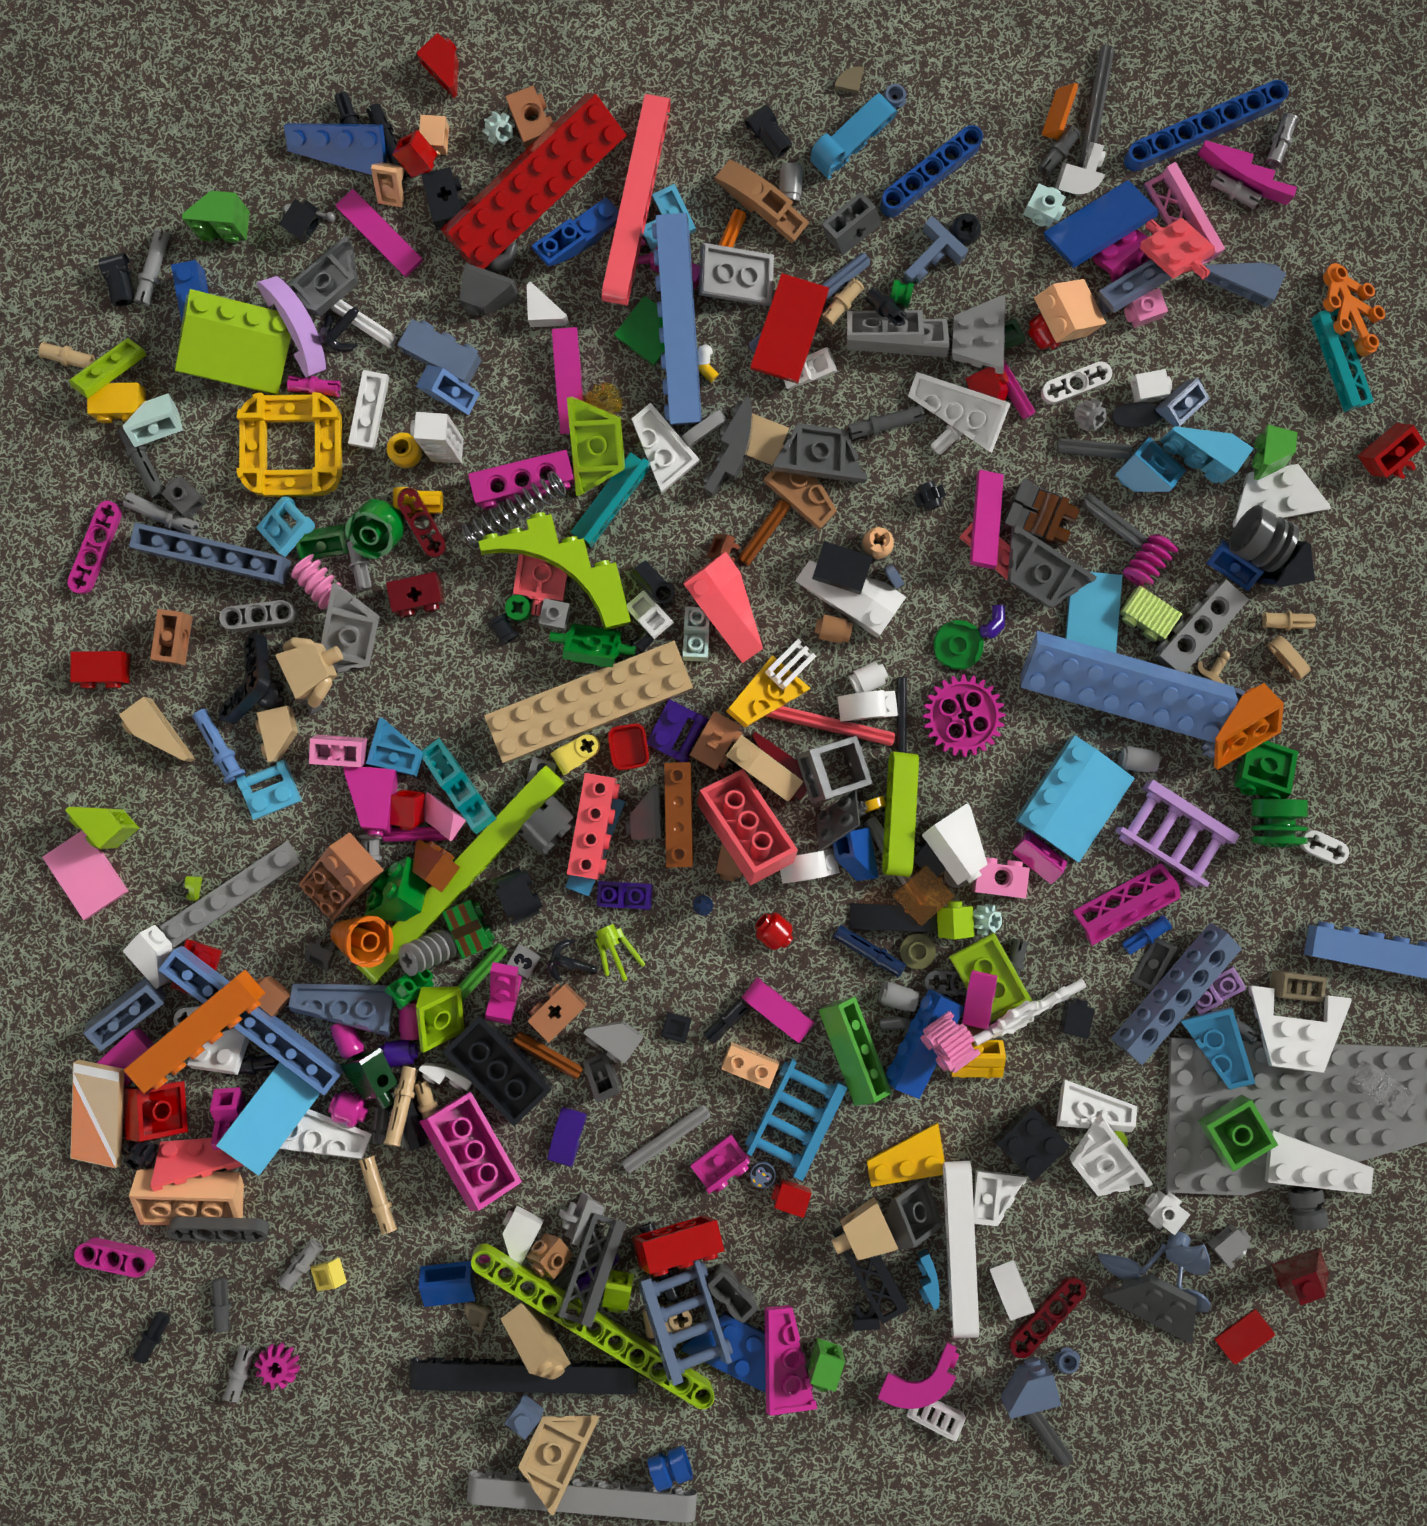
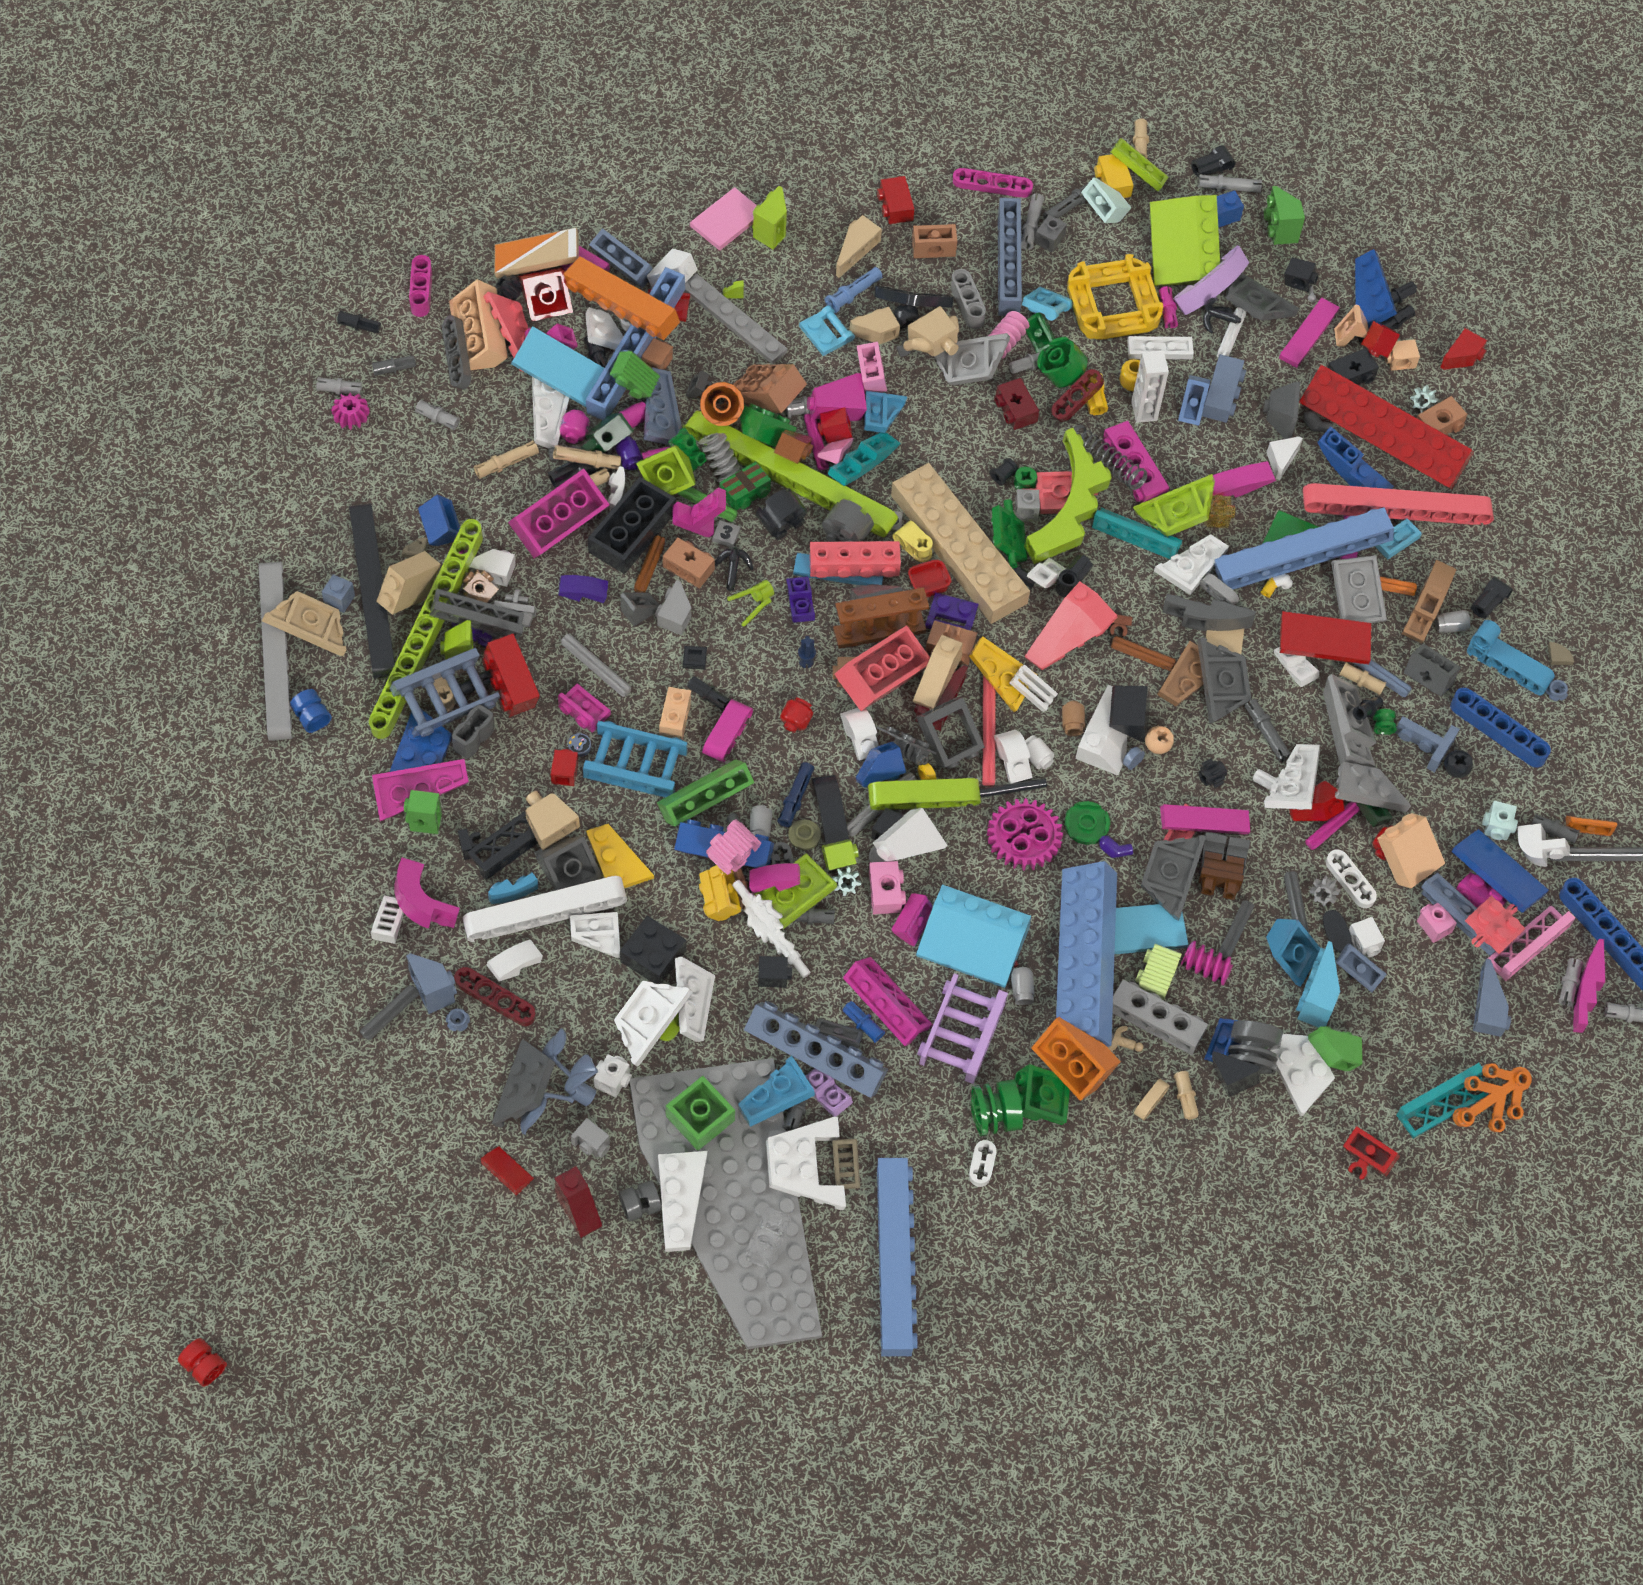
camera: 70 degrees right, 25 degrees down
(304, 1033) = (634, 375): none -> bright green brick
(328, 1275) = (431, 437): light yellow slope -> none
(695, 635) = (1035, 617): light aqua slope -> none
(923, 895) = (856, 821): clear orange piece -> none

